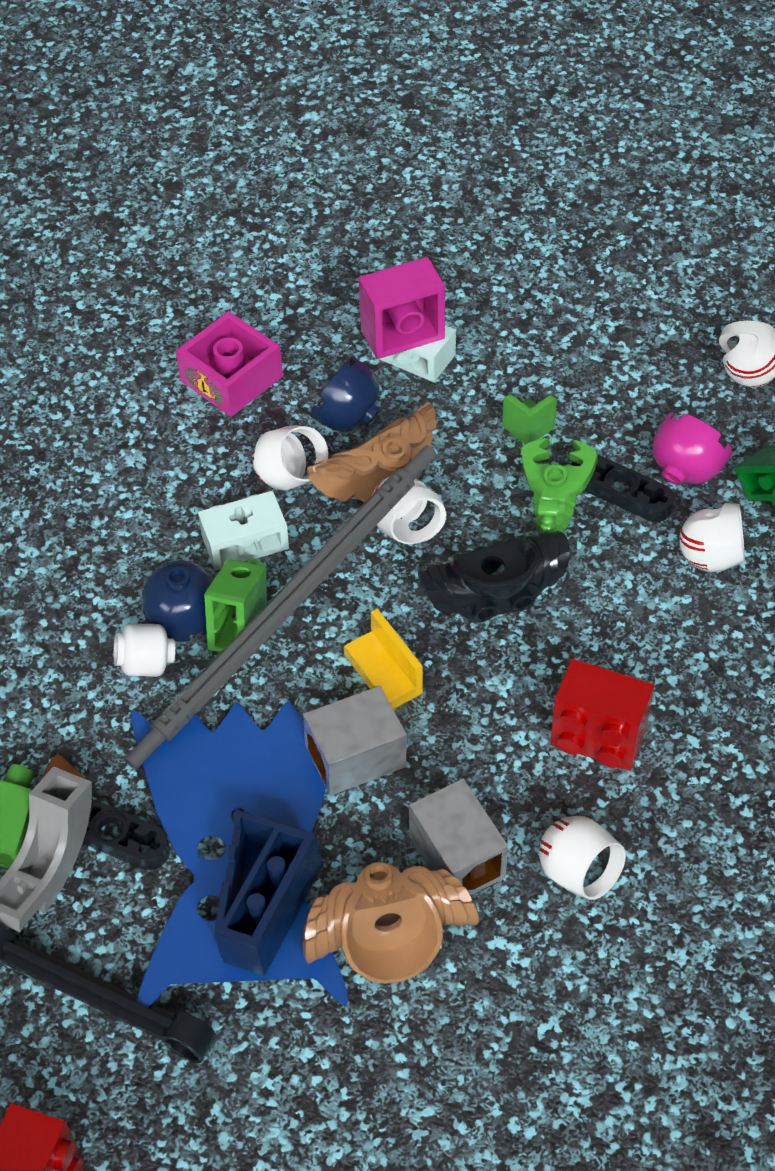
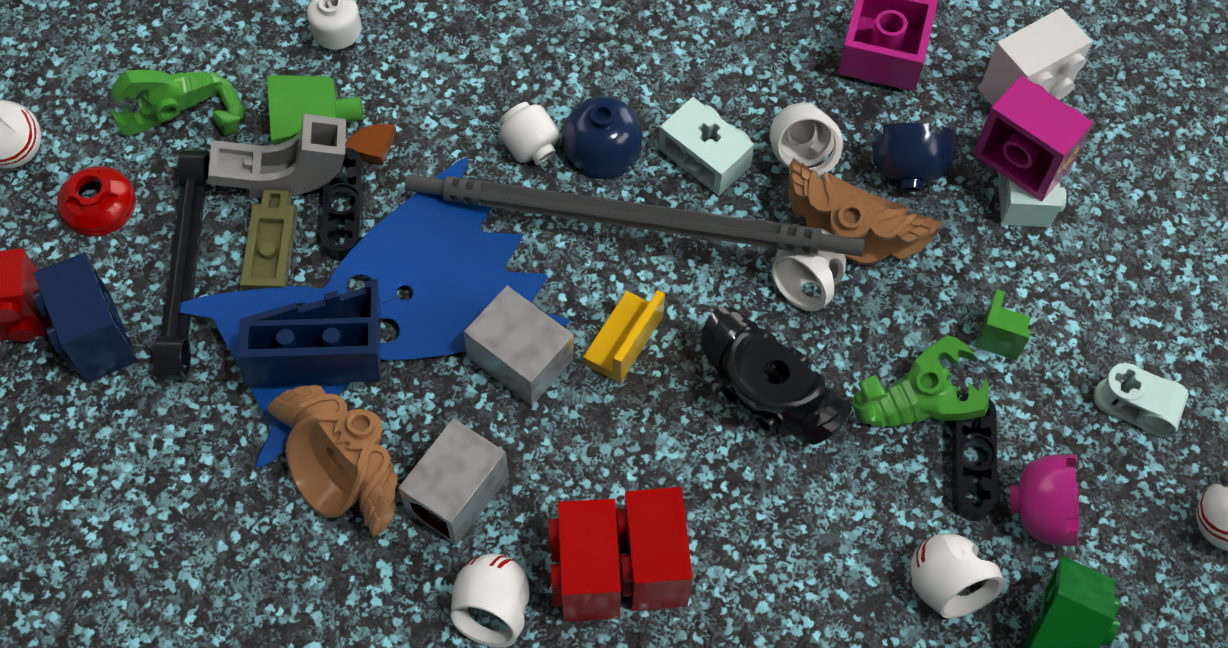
camera: 60 degrees right, 10 degrees up
(107, 1091) = (83, 318): none -> dark blue brick
(114, 906) = (269, 241): none -> olive hinge
(237, 589) = (617, 171): bright green torso -> none
(326, 286) = (1042, 52): none -> white brick
(586, 766) = (589, 571): none -> red brick
(633, 367) = (1143, 399): none -> light aqua piece

